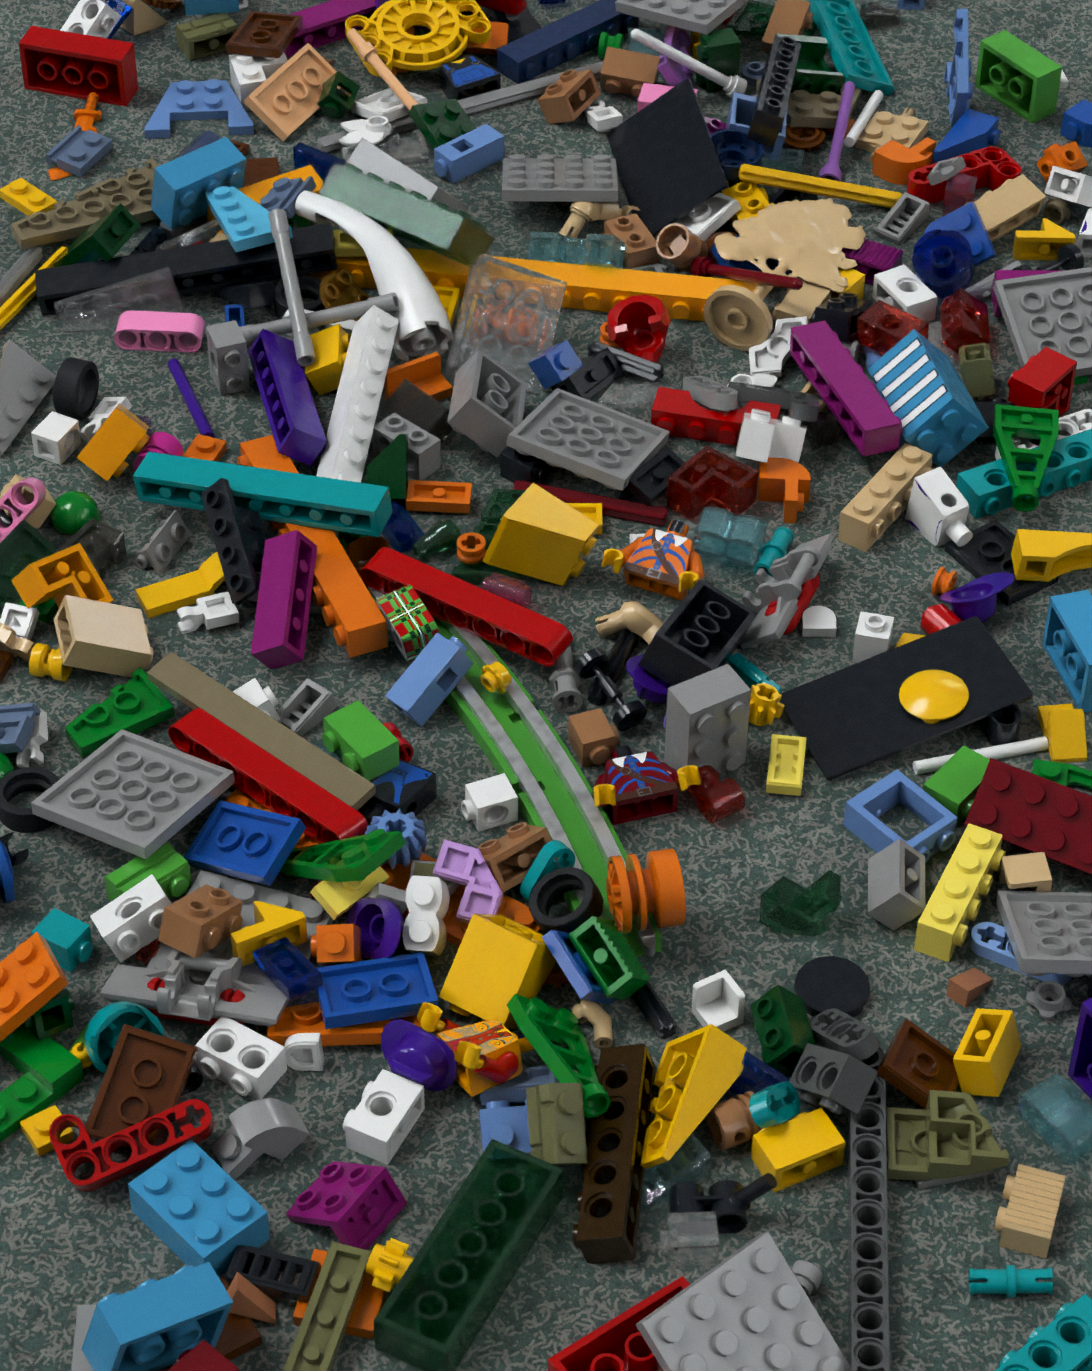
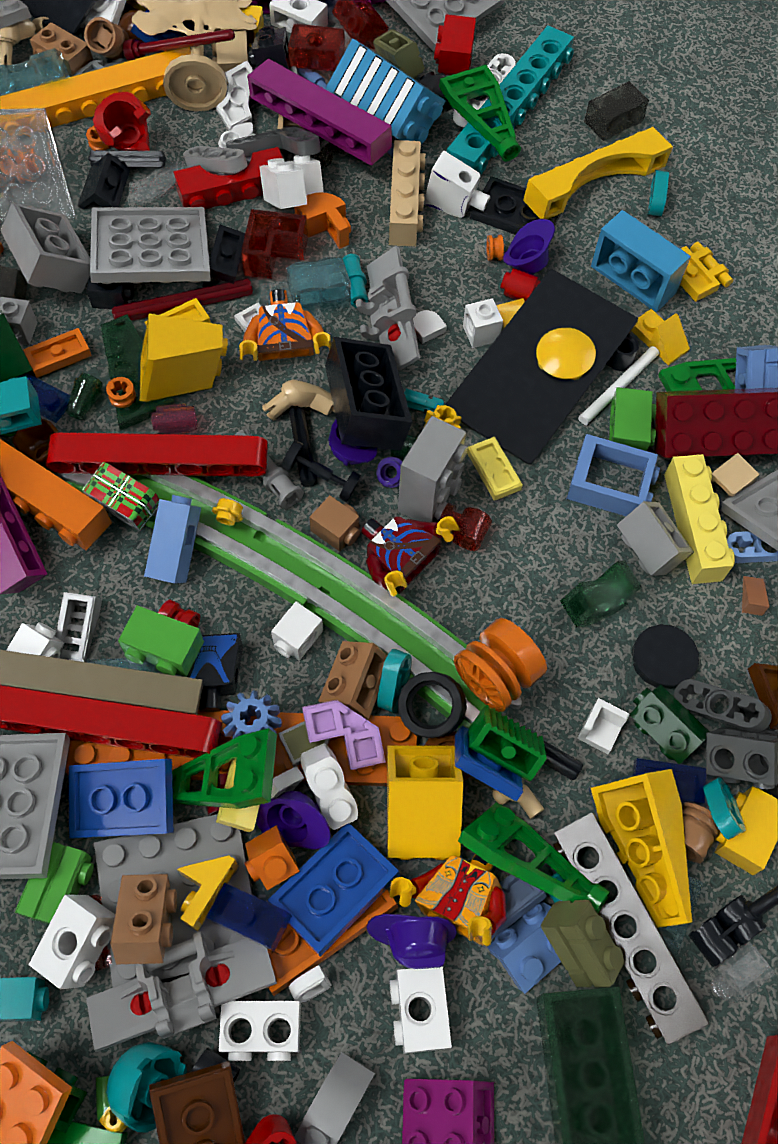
camera: 35 degrees left, 20 degrees up
(555, 364) = (77, 186): blue brick -> none

